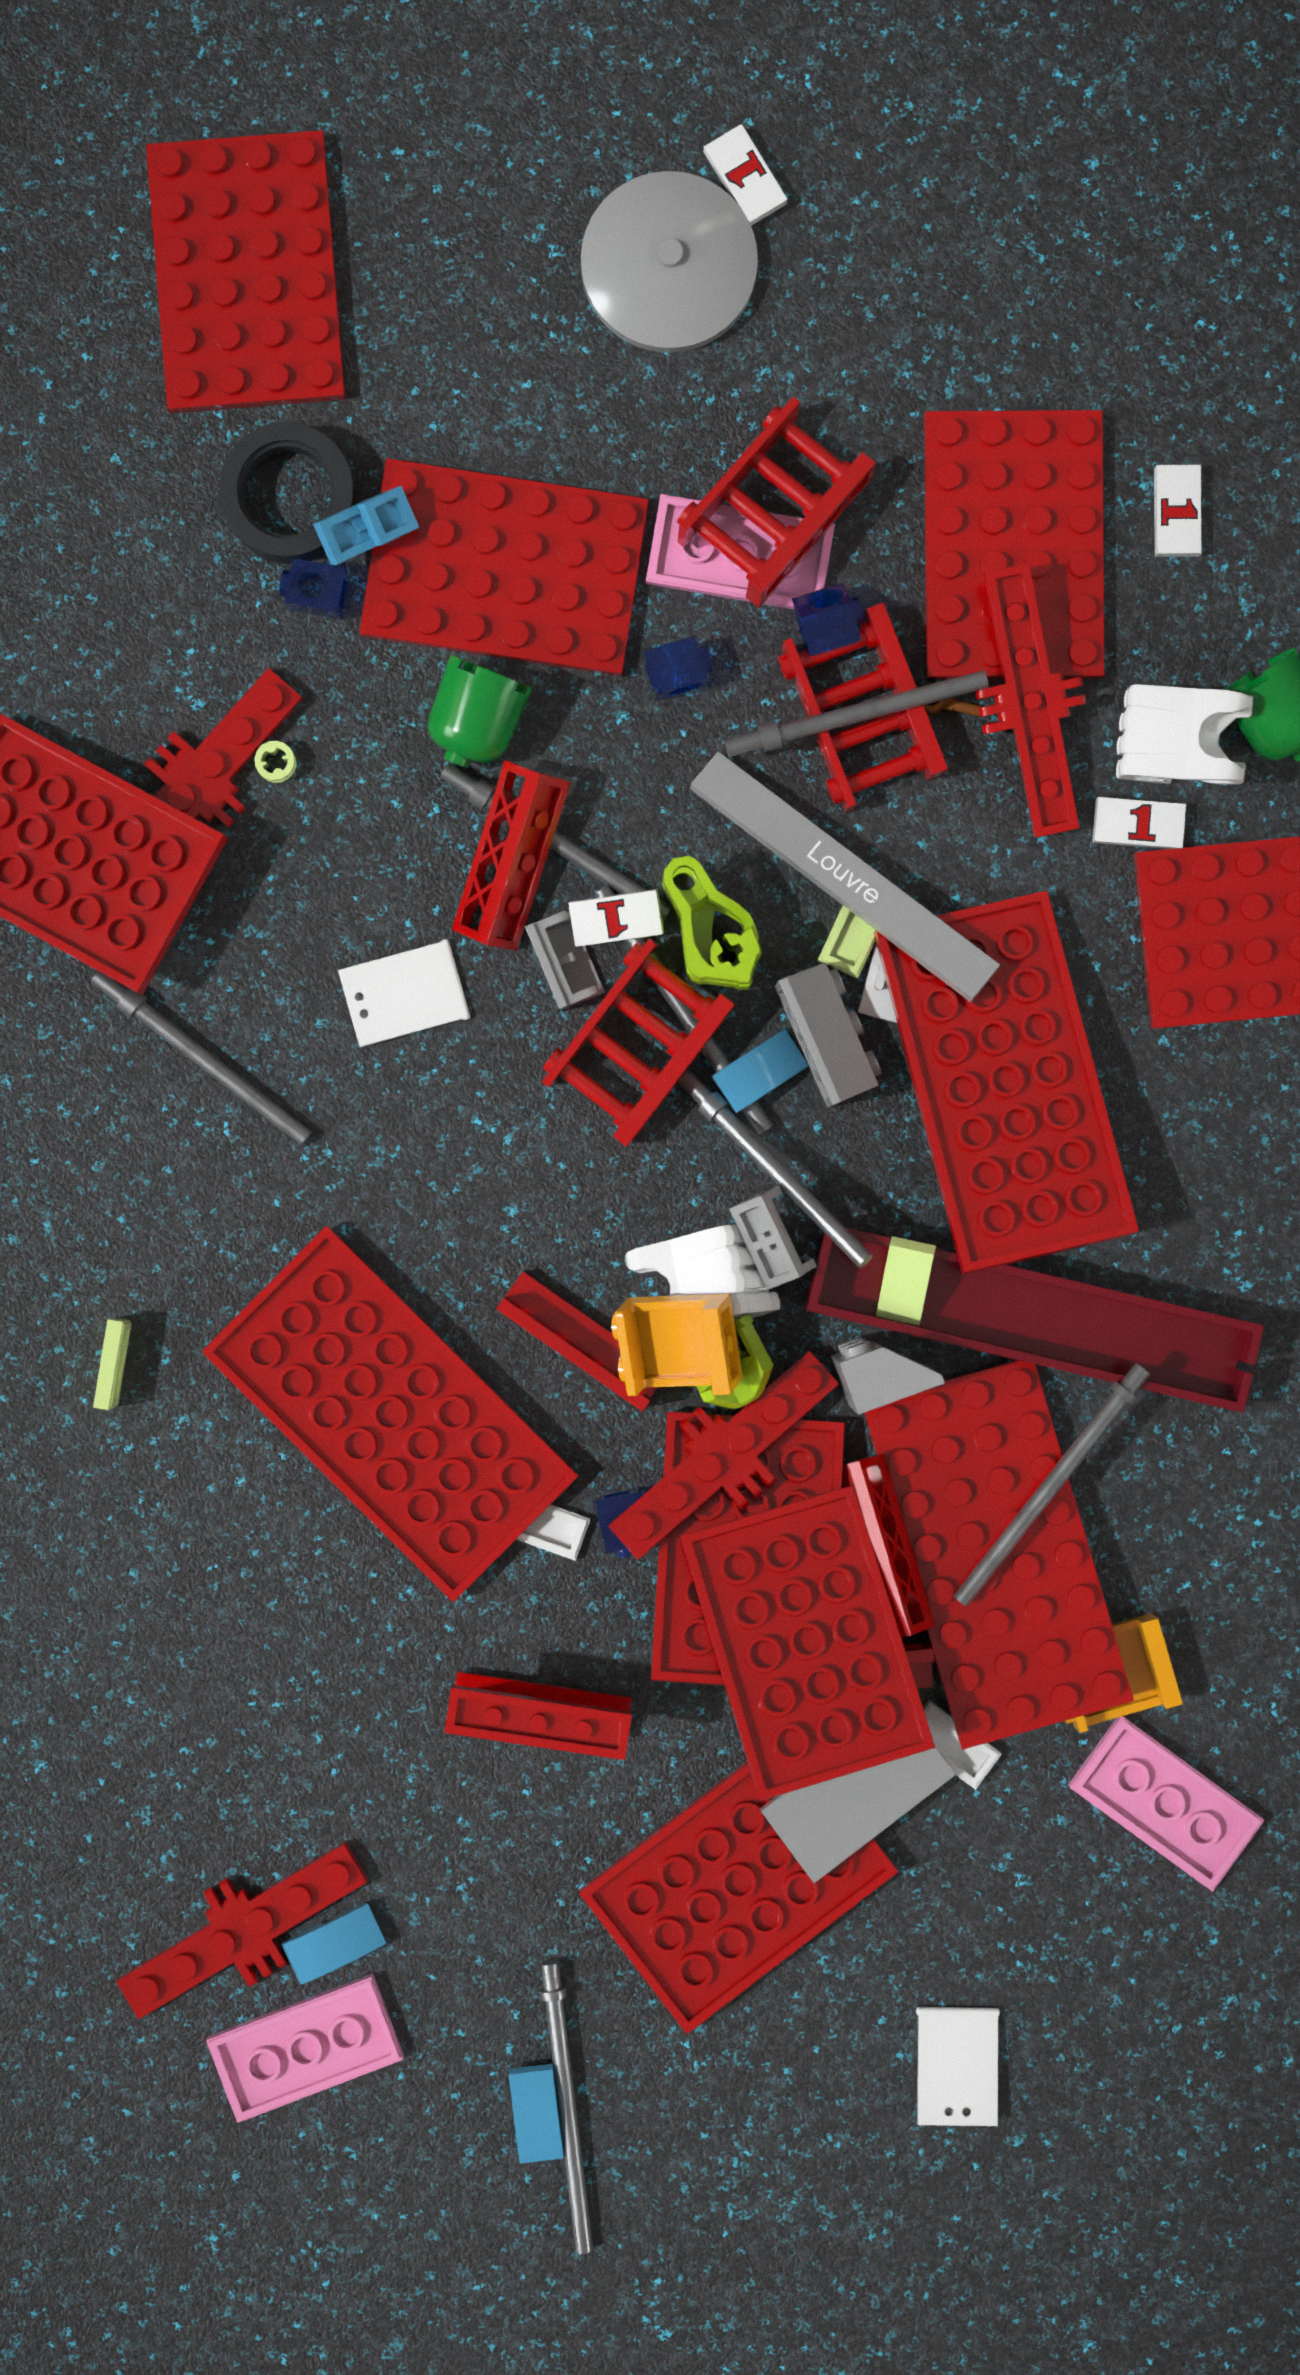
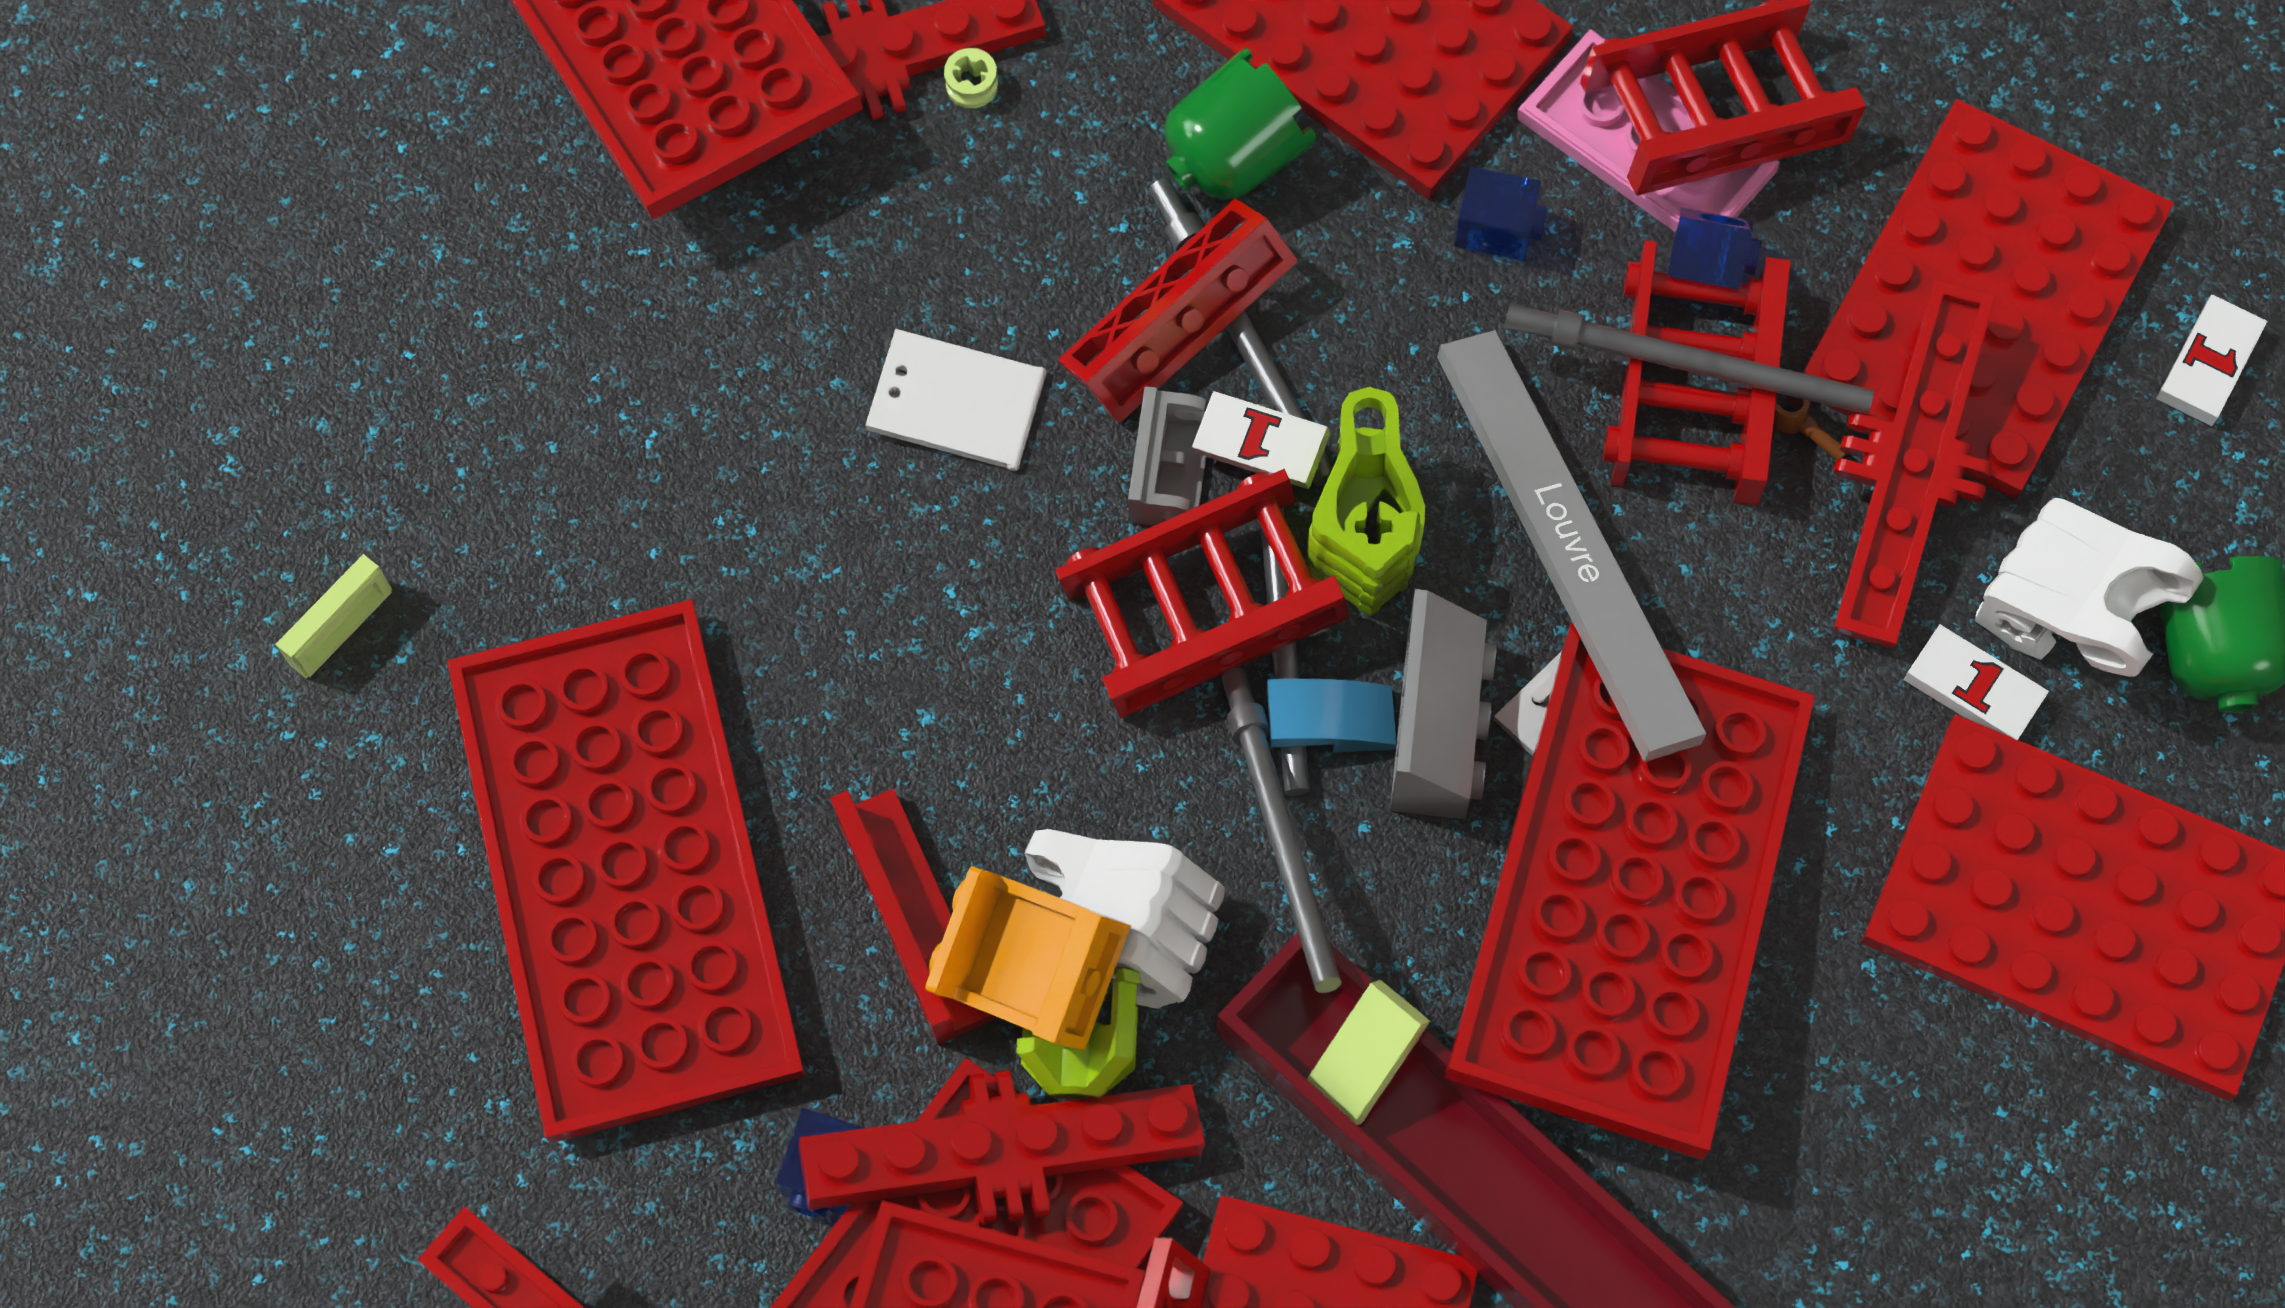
camera: 30 degrees right, 20 degrees down
(134, 1004) = (638, 245): flat silver bar -> none
(557, 1531) = (733, 1135): white tile -> none
(768, 1239) = (1220, 900): light grey hinge -> none
(848, 944) = (1529, 630): yellowish green tile -> none
(878, 1375) = (1267, 1146): light grey slope -> none

